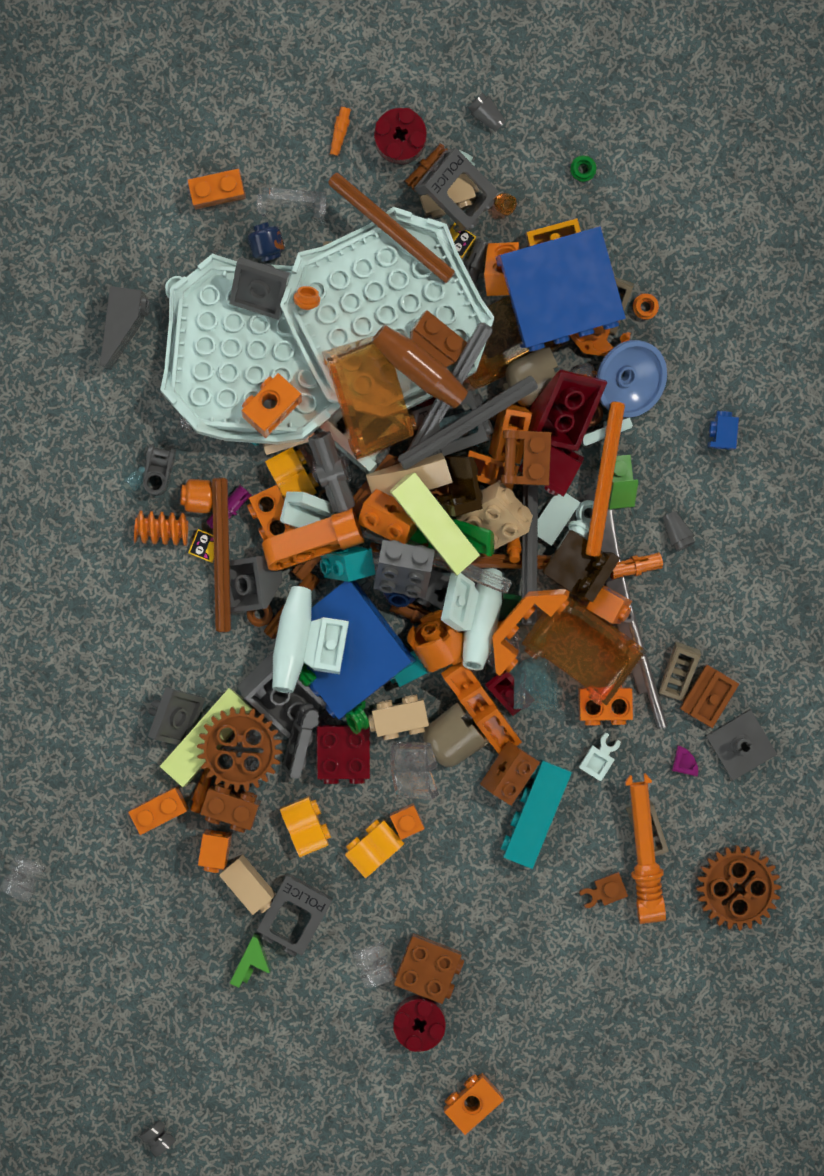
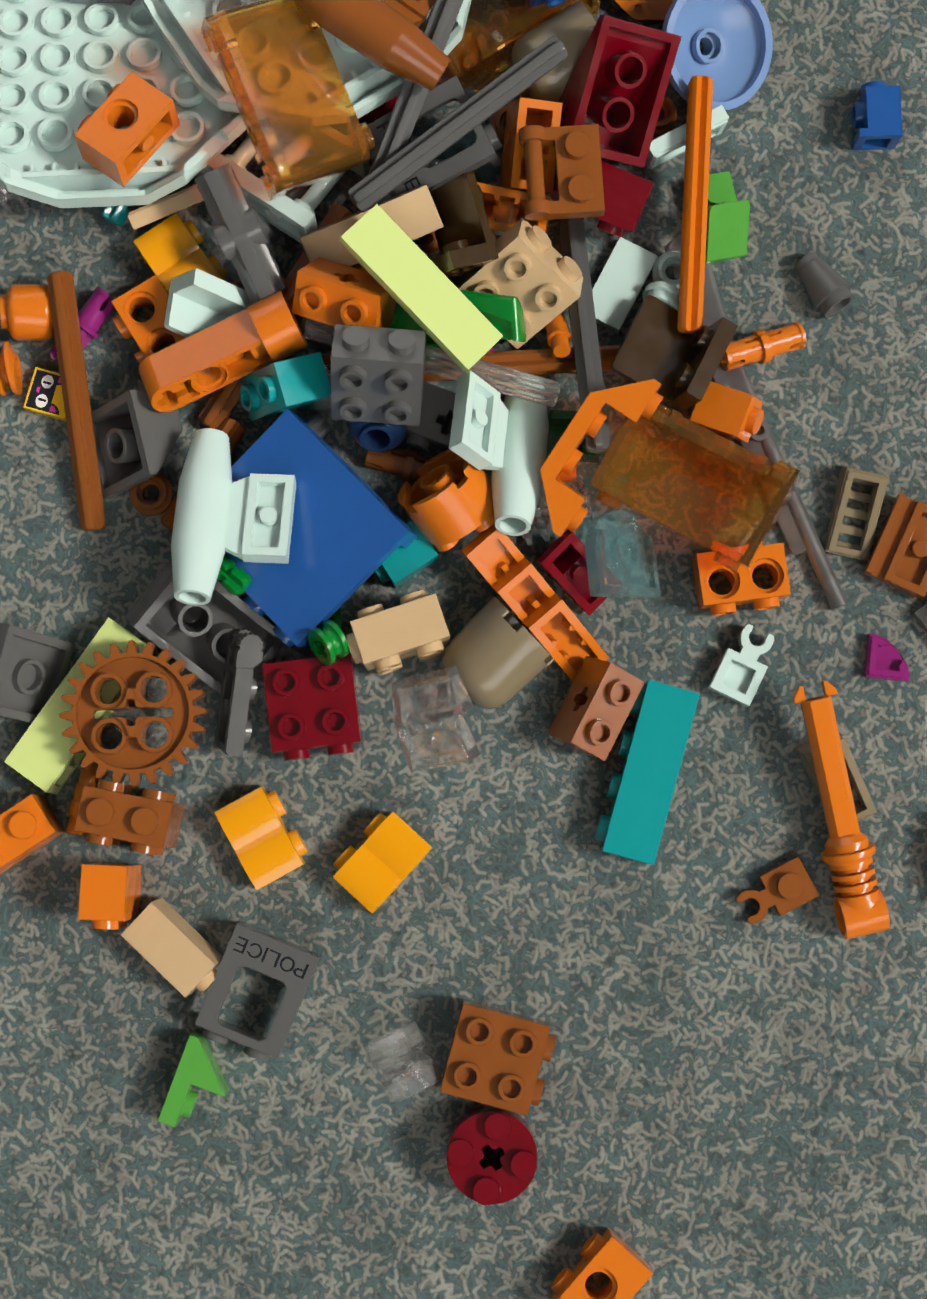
camera: 10 degrees left, 5 degrees down
(407, 821) = (432, 809): orange brick -> none

